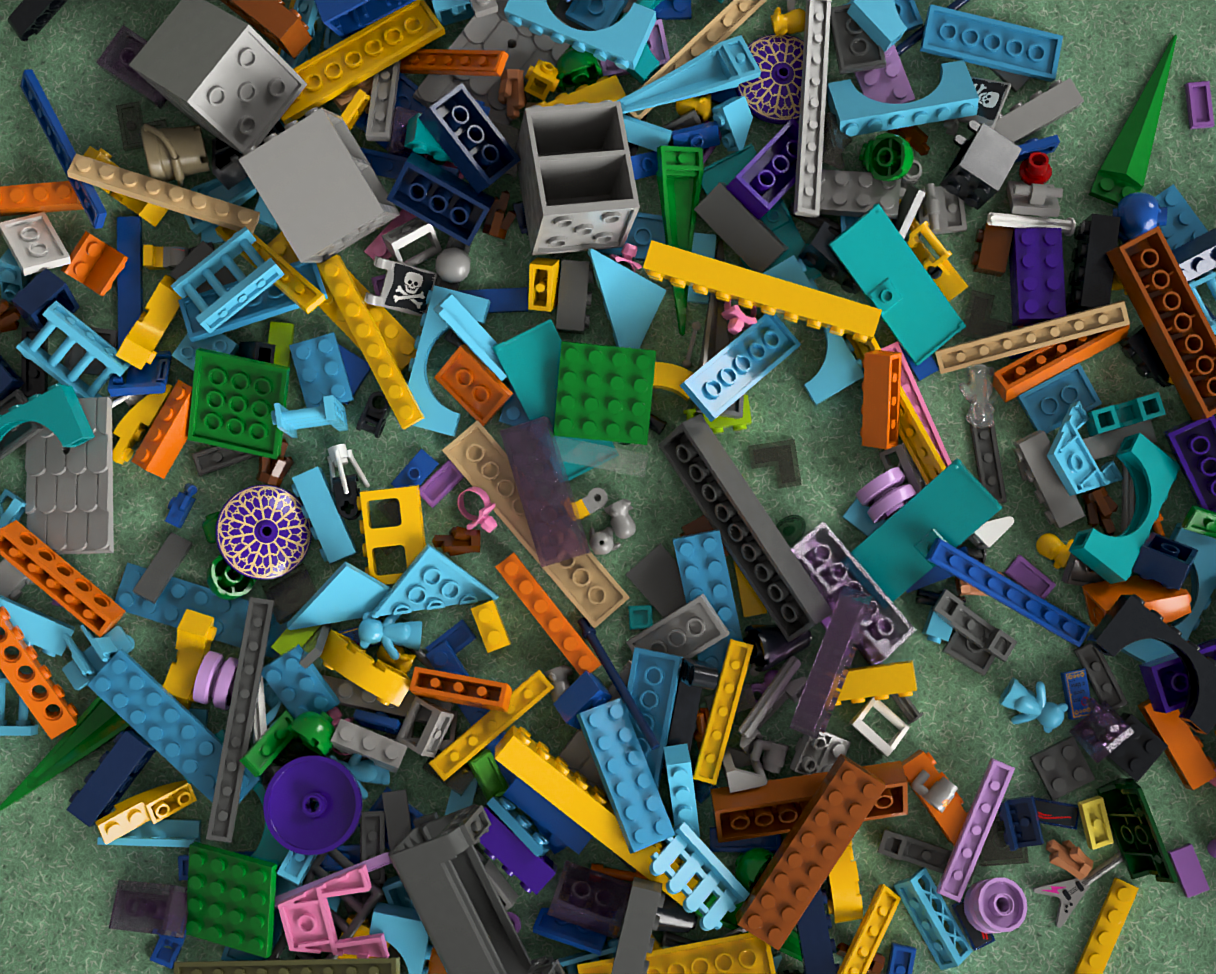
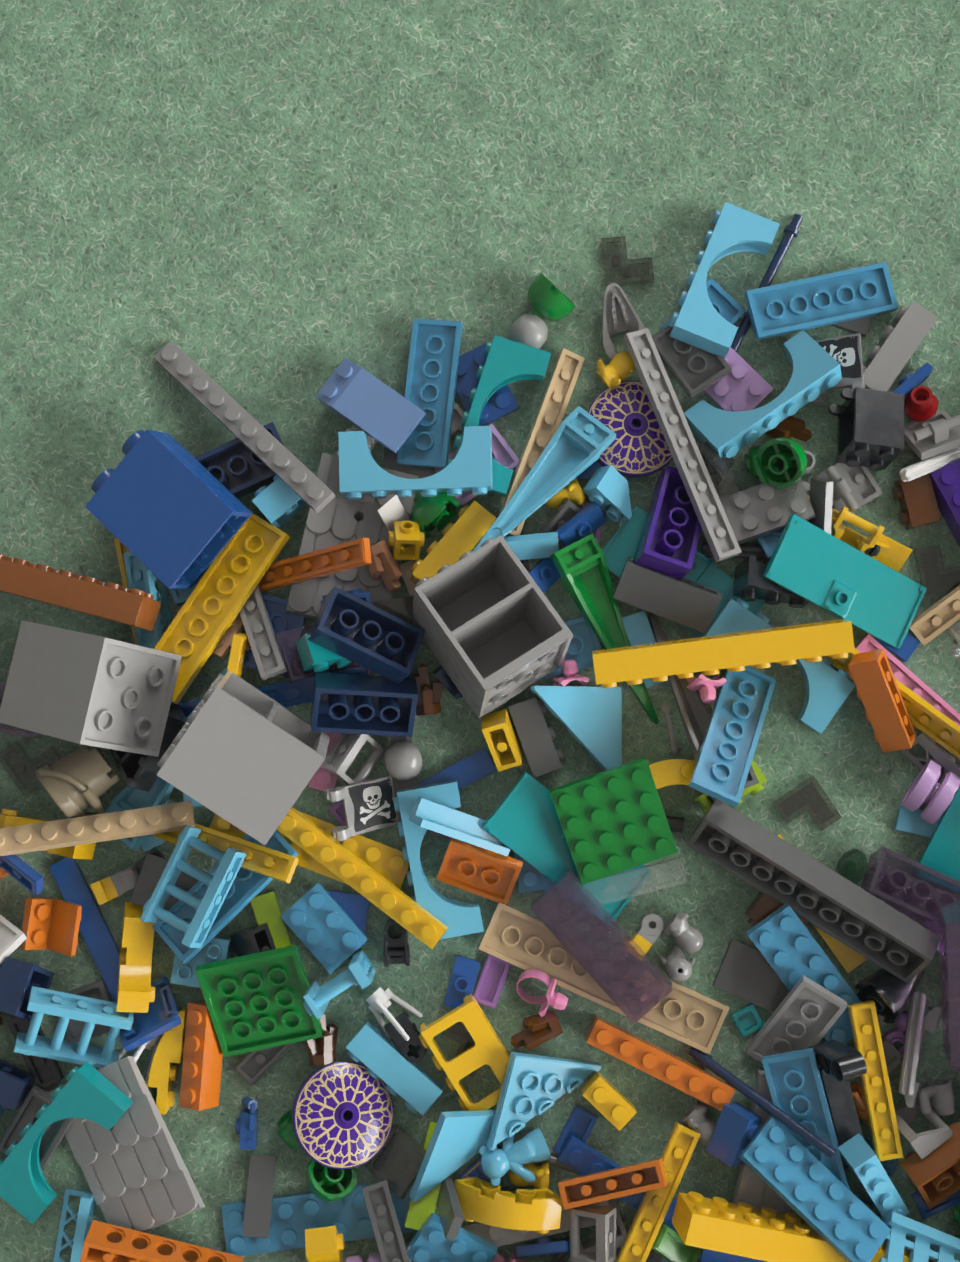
camera: 25 degrees left, 0 degrees up
(541, 49) = (392, 512): none -> white sticker

